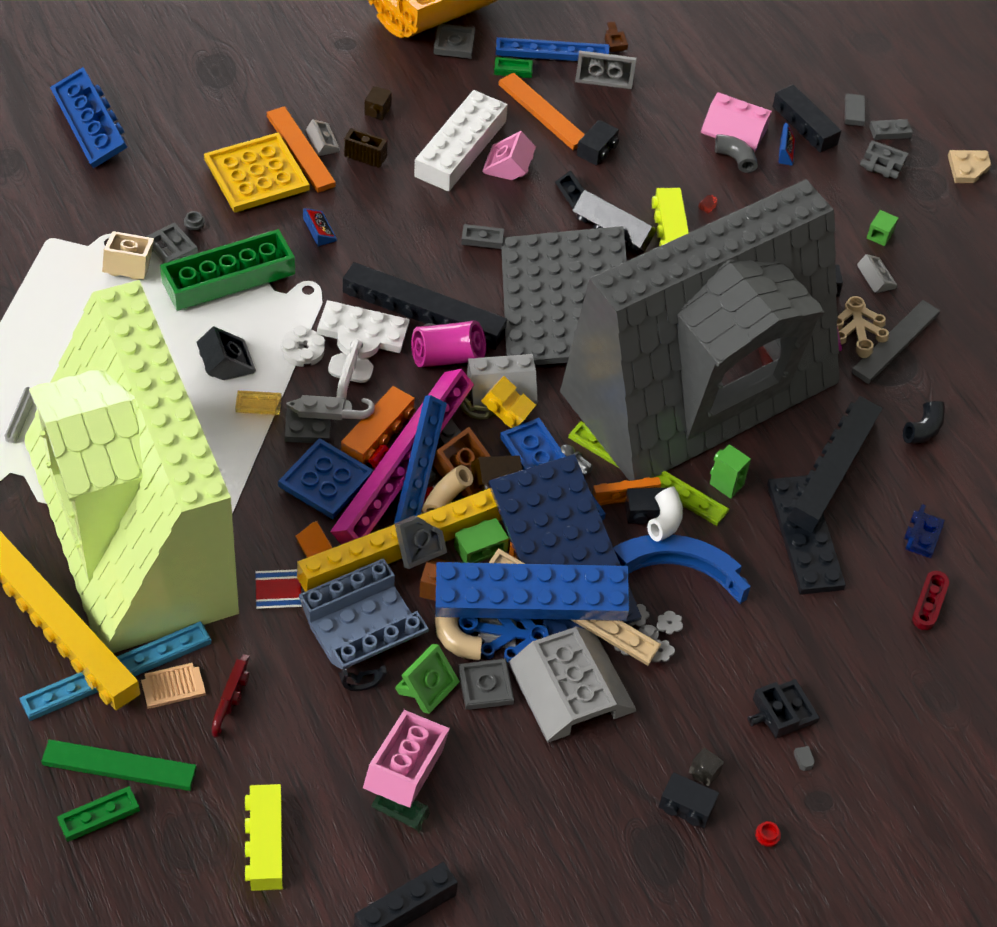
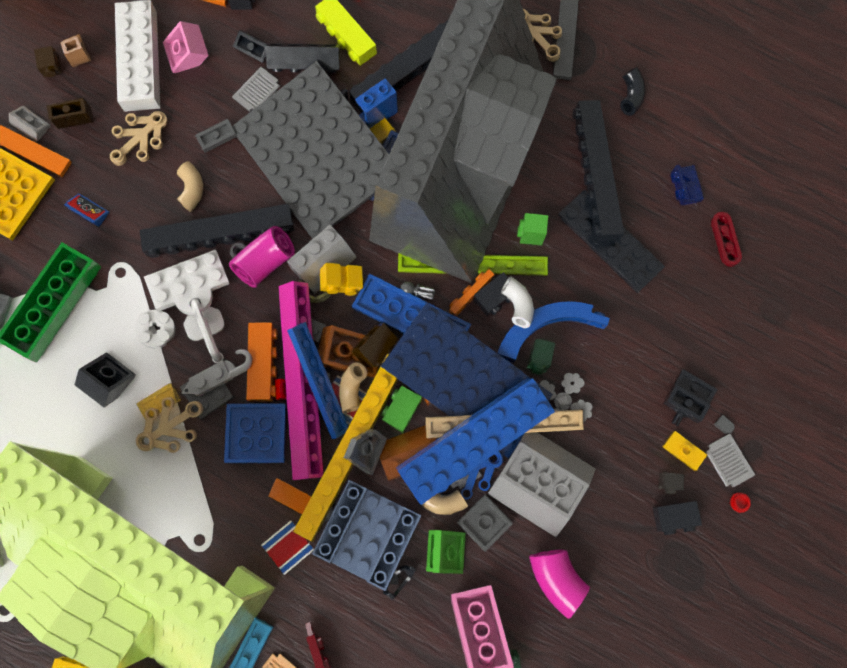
camera: 30 degrees left, 25 degrees up
(251, 422) = (166, 427): none -> tan plant
(409, 106) = (75, 51): none -> medium nougat brick
(429, 261) = (193, 186): none -> tan cylinder
(435, 198) = (140, 135): none -> tan plant
(522, 771) = (559, 580): none -> dark pink brick
(549, 223) = (256, 89): none -> light grey window
(654, 575) = (540, 356): none -> clear green brick
(743, 753) = (684, 450): none -> yellow plate
(785, 794) = (729, 461): none -> light grey window

